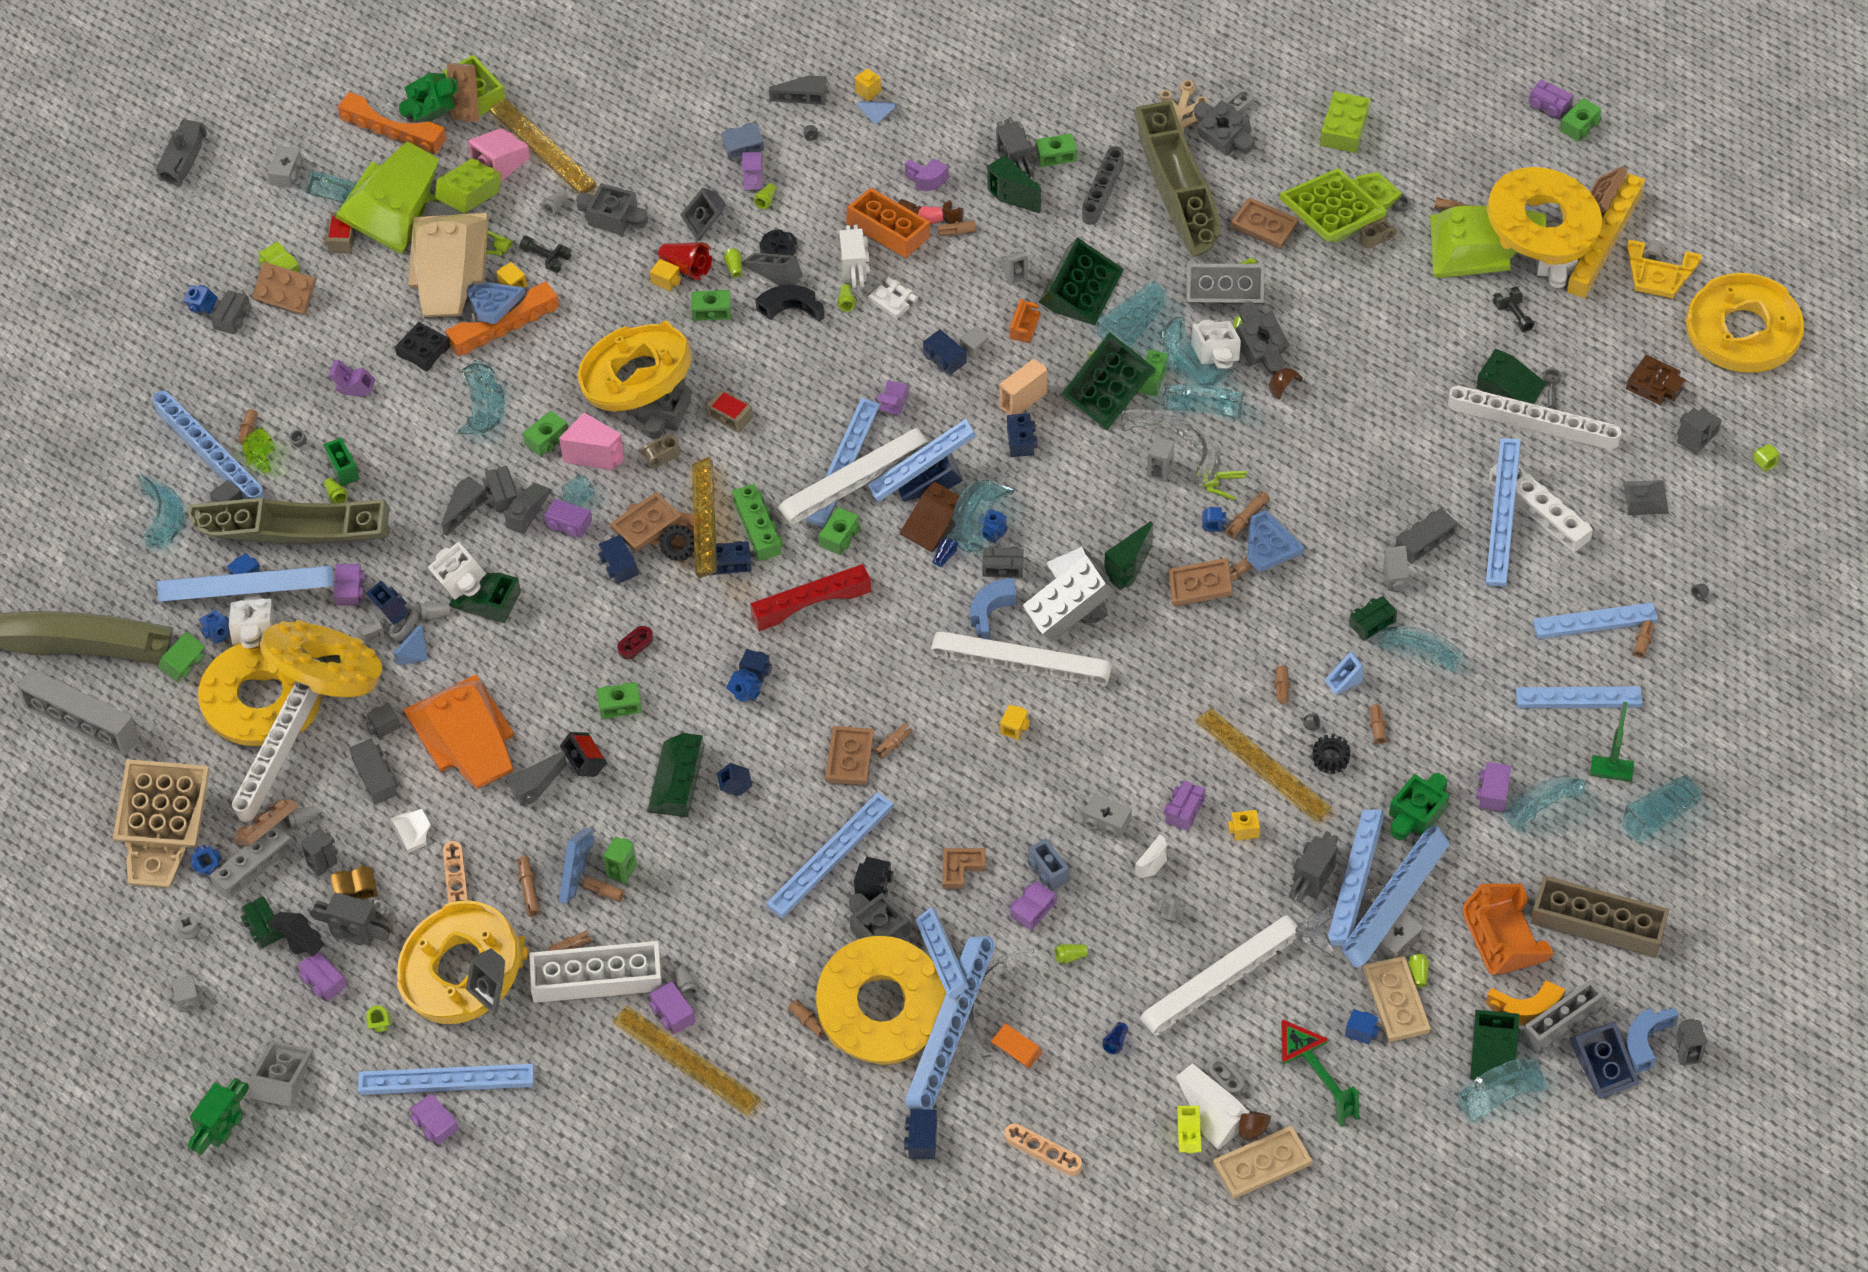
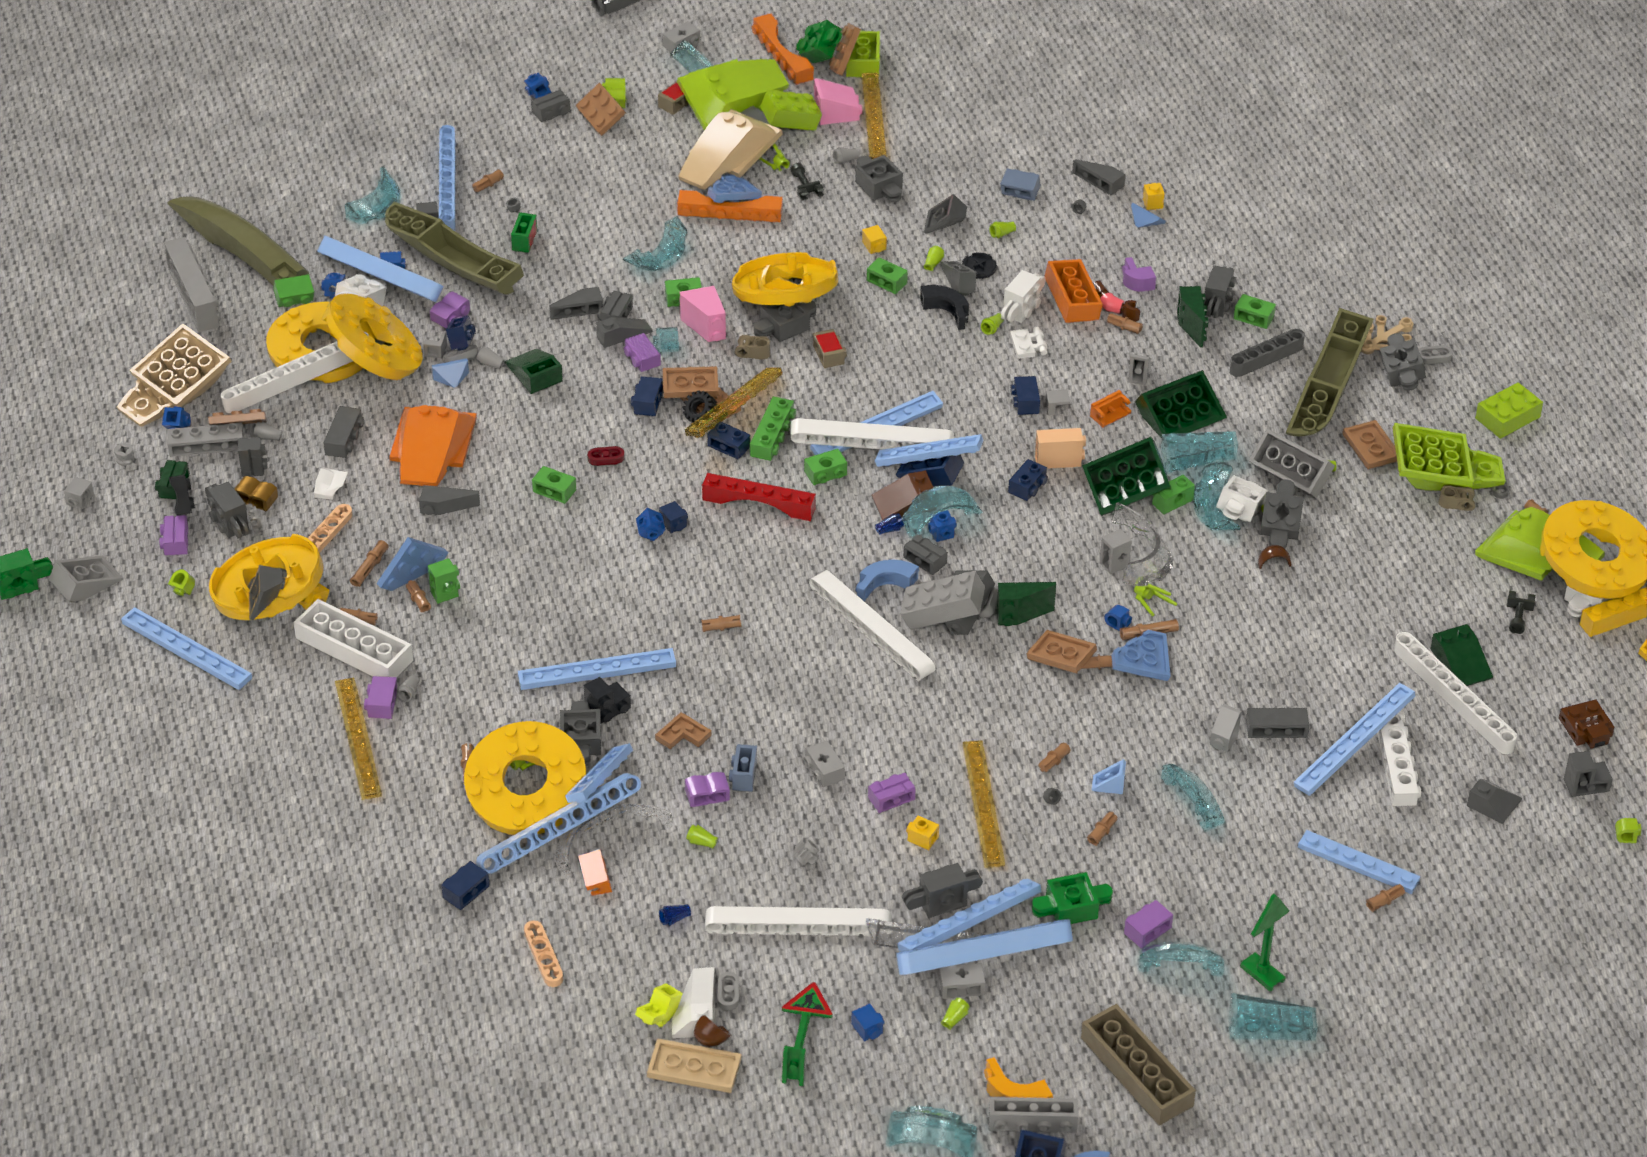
camera: 35 degrees right, 10 degrees down
(256, 447) = (479, 194): clear neon green brick -> none
(335, 491) = (503, 249): lime cone -> none
(353, 383) = (583, 188): medium lavender brick -> none
(382, 720) = (382, 405): dark grey brick -> none
(422, 346) = (657, 194): black brick -> none
(434, 1119) = (150, 667): medium lavender brick -> none
(457, 571) = (526, 339): white brick -> none
(511, 276) = (763, 182): yellow brick -> none
(583, 754) = (492, 502): black brick -> none
(677, 775) = (546, 556): dark green slope -> none
(691, 258) = (901, 237): red cone -> none
(734, 779) = (579, 579): dark blue brick -> none
(752, 170) = (1008, 204): medium lavender brick -> none
(849, 755) = (679, 614): medium nougat plate -> none
(893, 397) = (958, 404): medium lavender brick -> none
(1014, 722) = (821, 662): yellow brick -> none
(1152, 859) = (829, 812): white slope -> none
(1204, 399) = (1193, 532): clear light blue windscreen -> none
(1333, 744) = (1039, 834): black tyre -> none
(1372, 618) = (1174, 752): dark green brick -> none
(1396, 999) = (915, 1022): tan plate -> none
(1493, 1040) = (962, 1093): dark green slope -> none
(1501, 930) = (1053, 1025): orange windscreen -> none
(1551, 391) = (1491, 684): flat silver piece -> none
(1578, 697) = (1298, 913): light blue plate -> none
(1700, 589) = (1470, 892): dark grey hinge -> none

